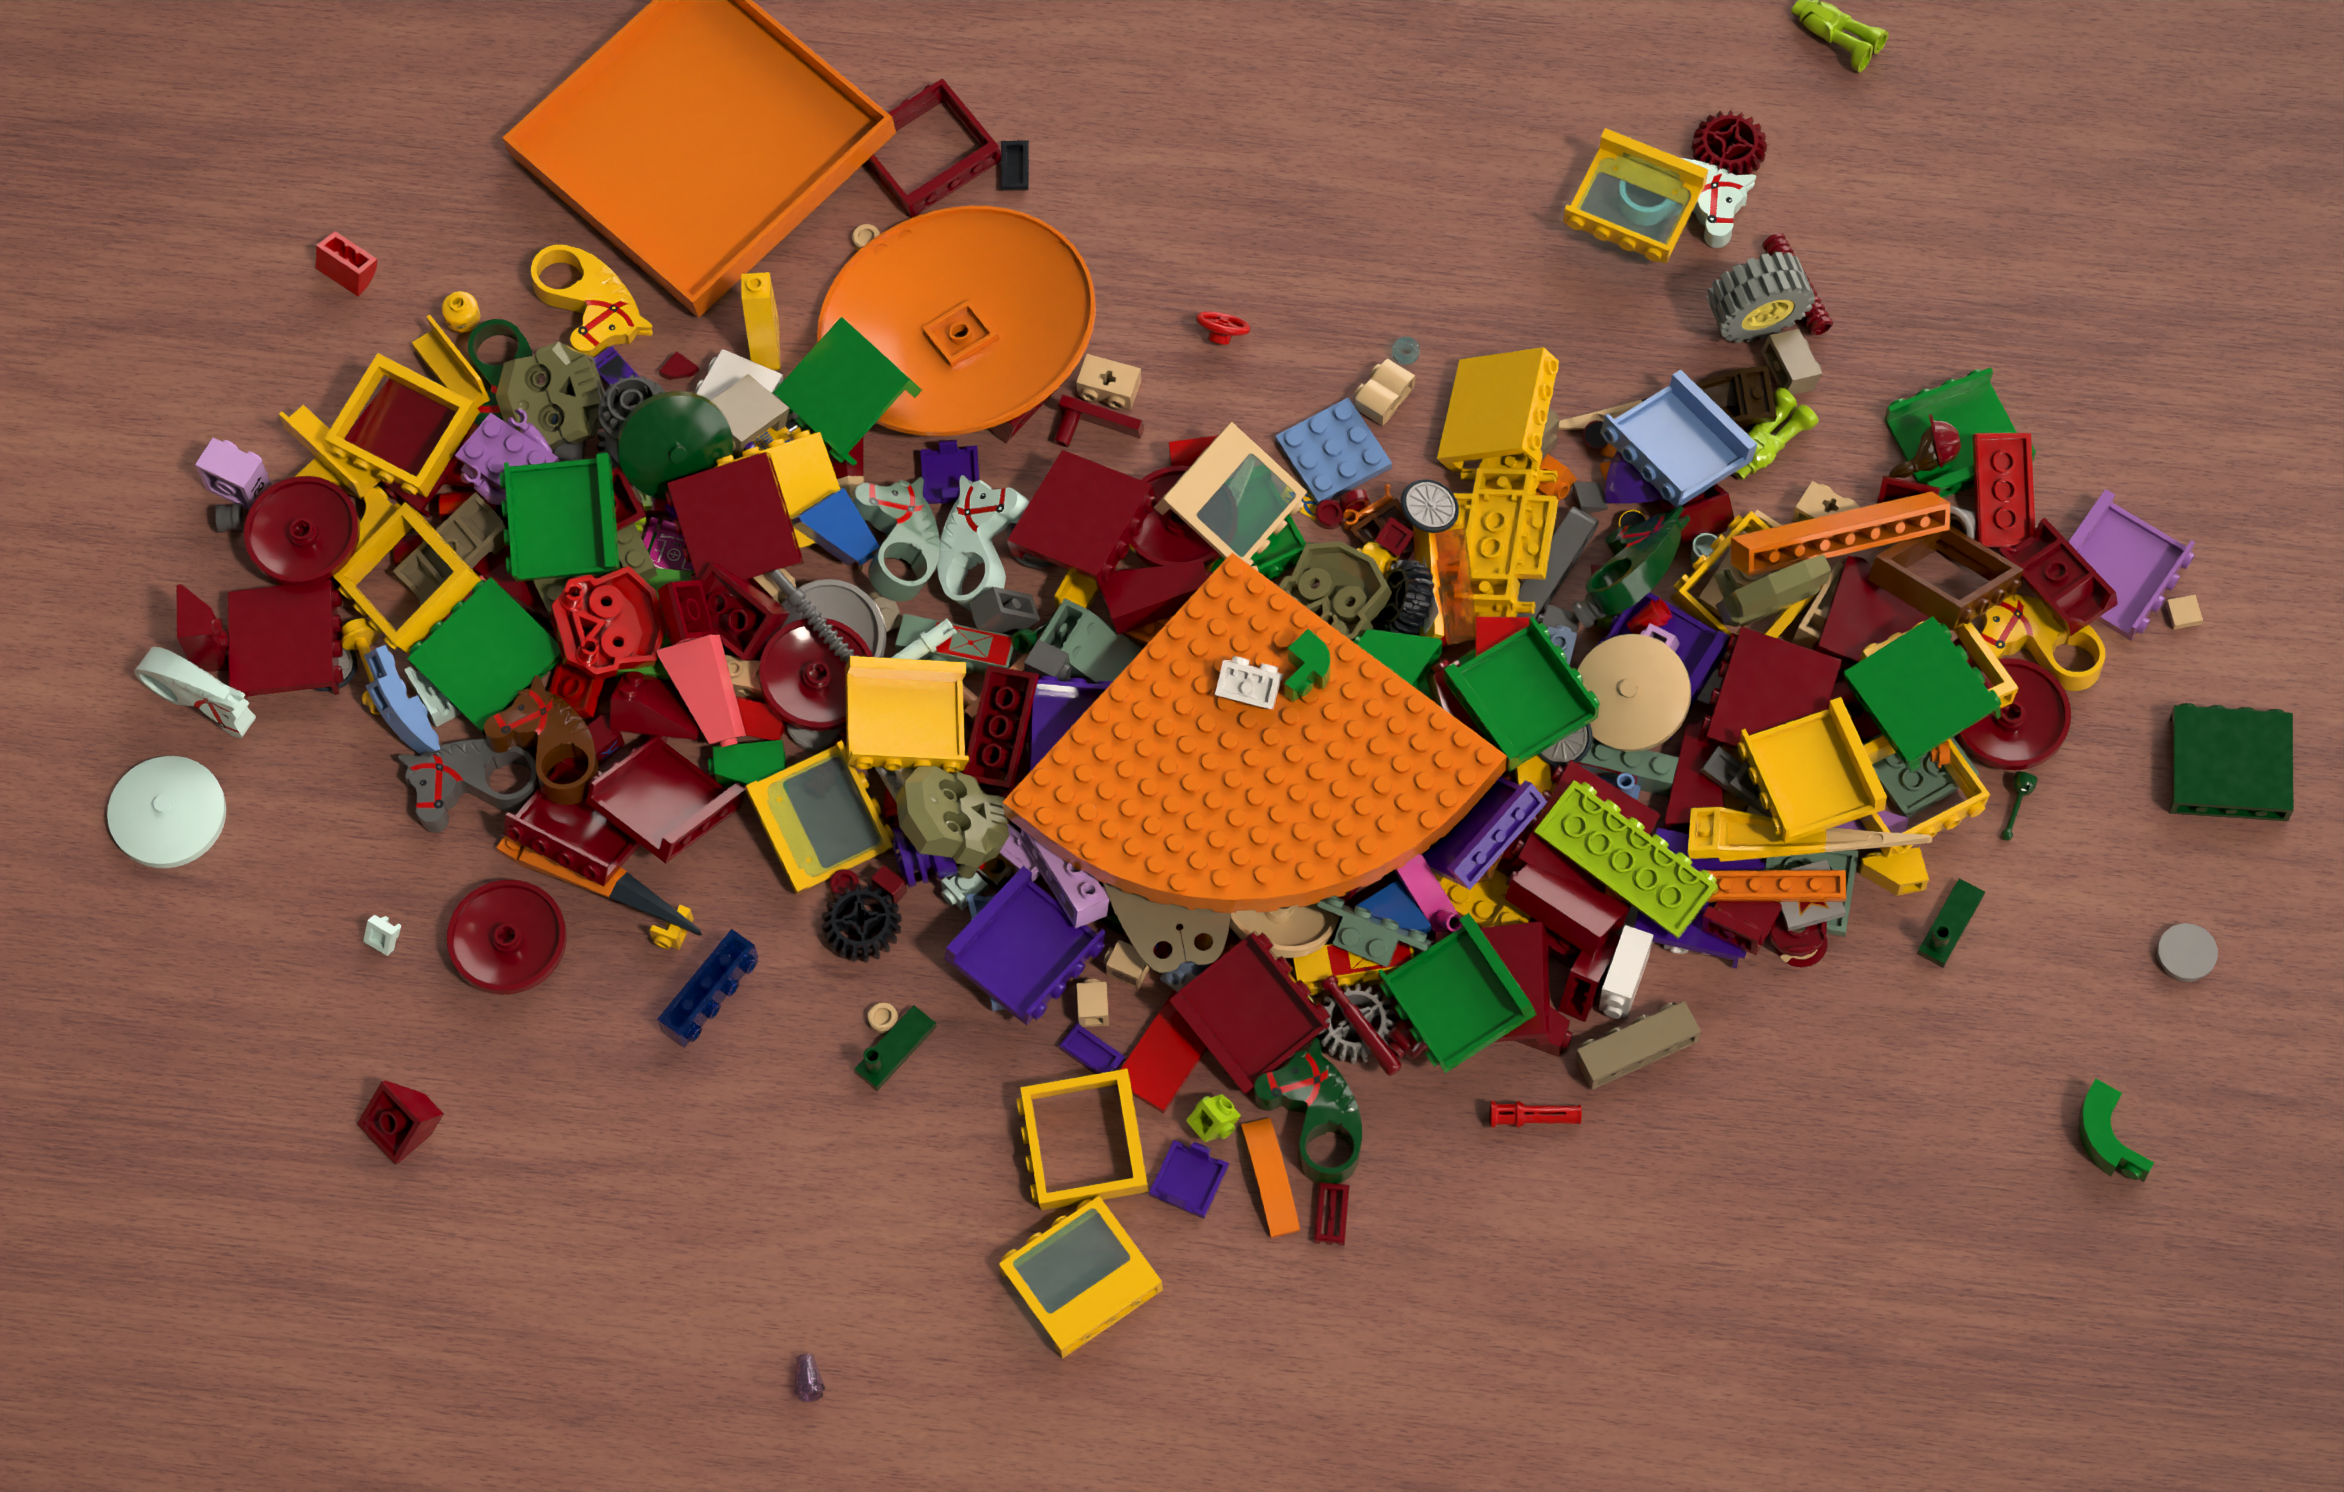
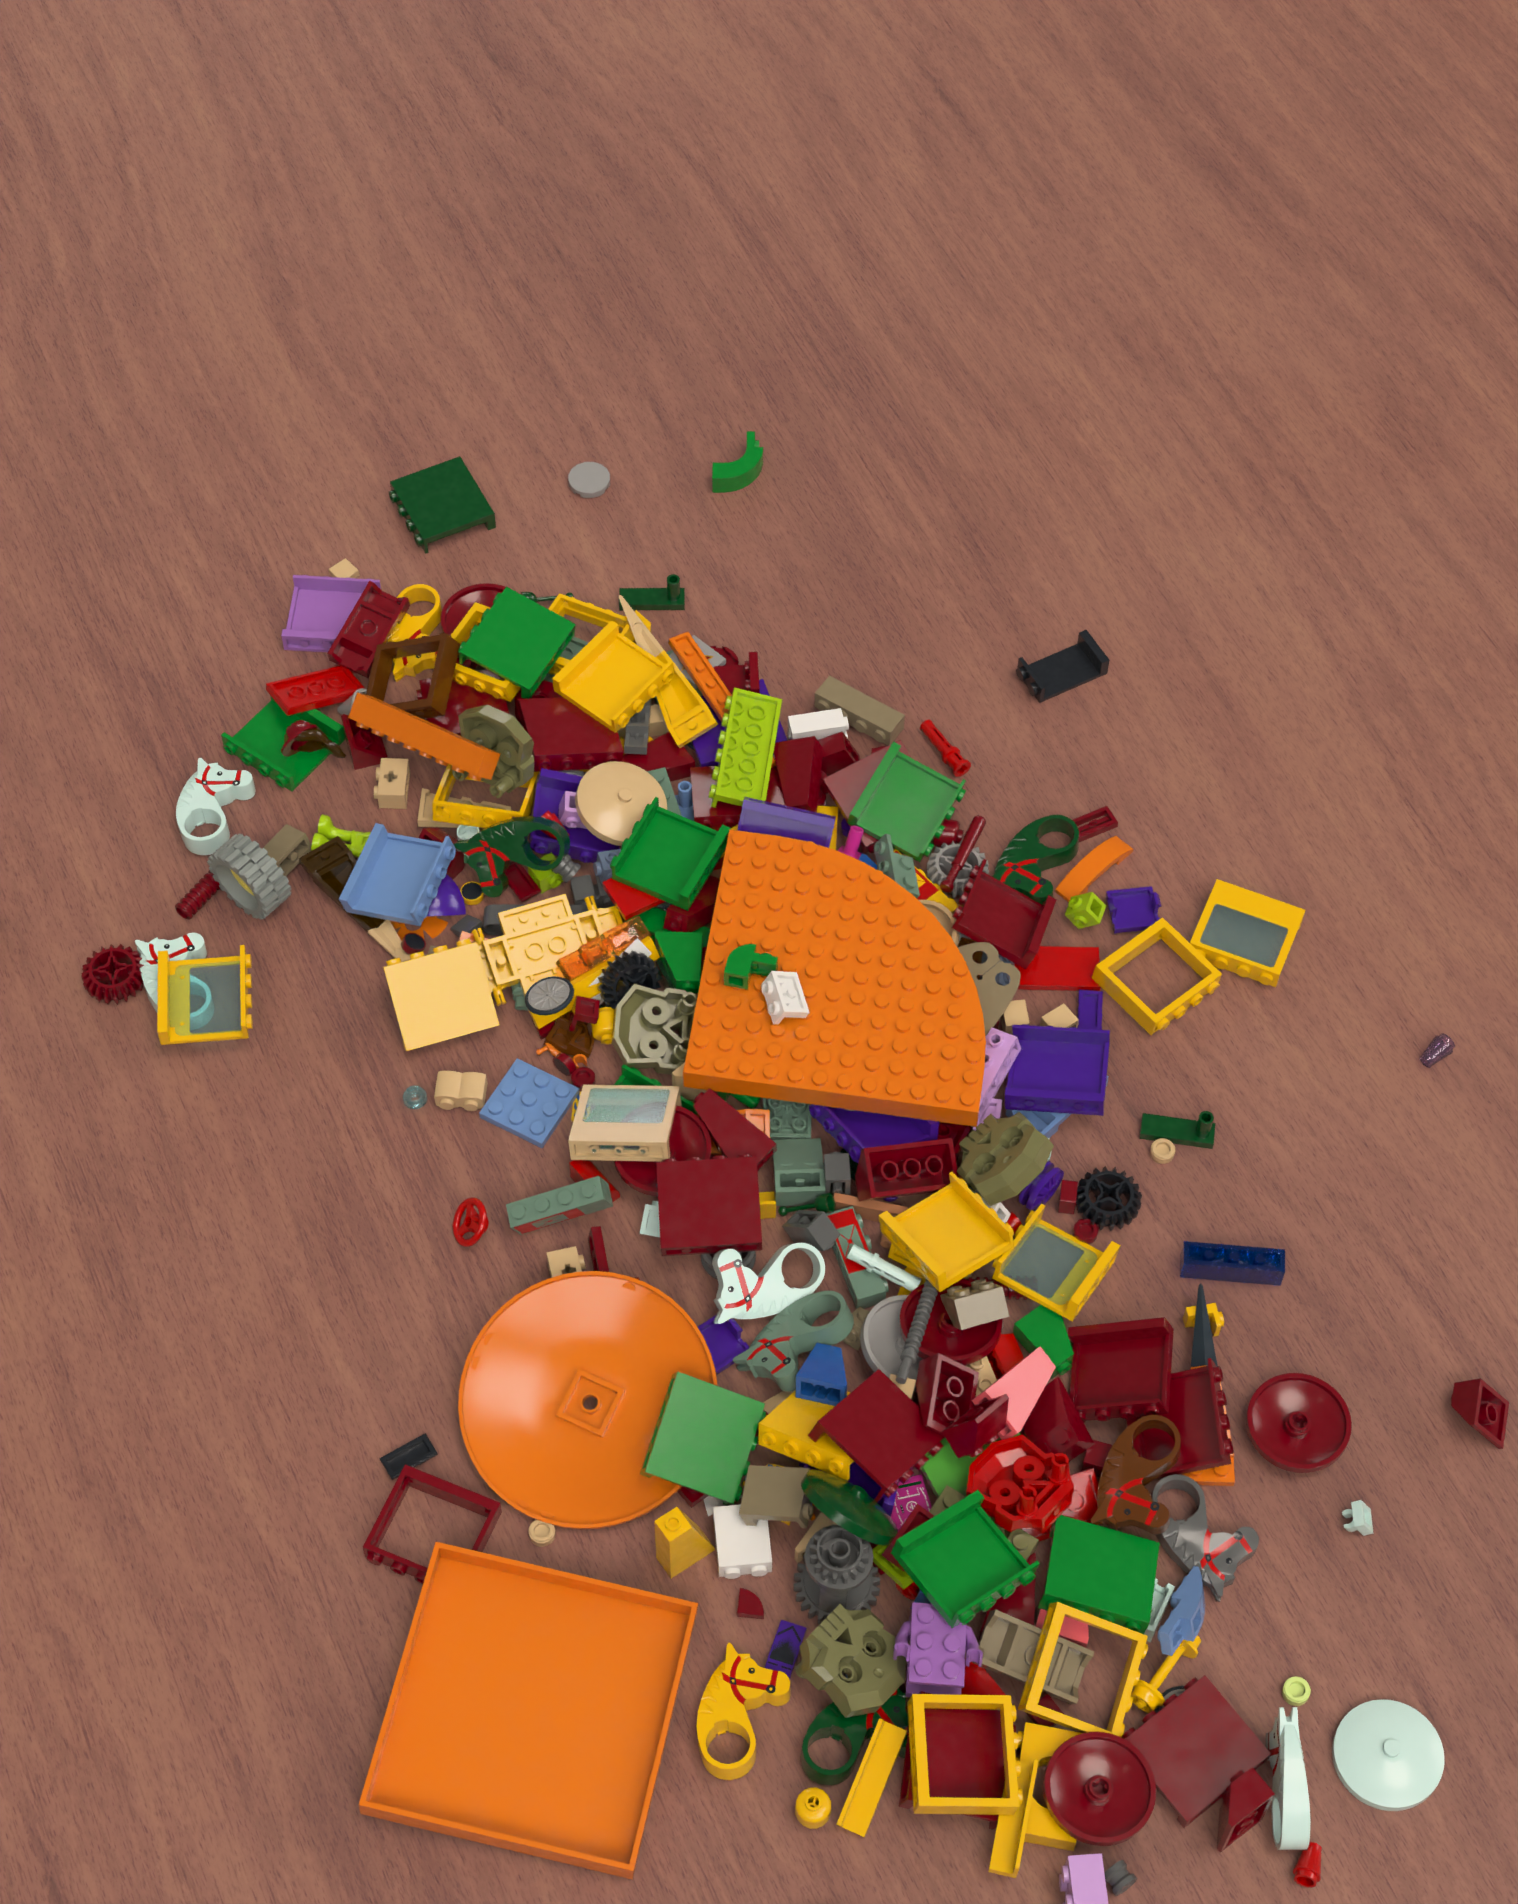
camera: 125 degrees left, 10 degrees down
(122, 673) = (1308, 1867): none -> red cone
(276, 773) = (1296, 1691): none -> yellowish green tile
(811, 692) = (975, 1304): none -> slope
(1180, 400) = (559, 1205): none -> sand green brick
(1571, 1318) = (1064, 669): none -> black panel
(1914, 316) = (202, 802): none -> light aqua animal

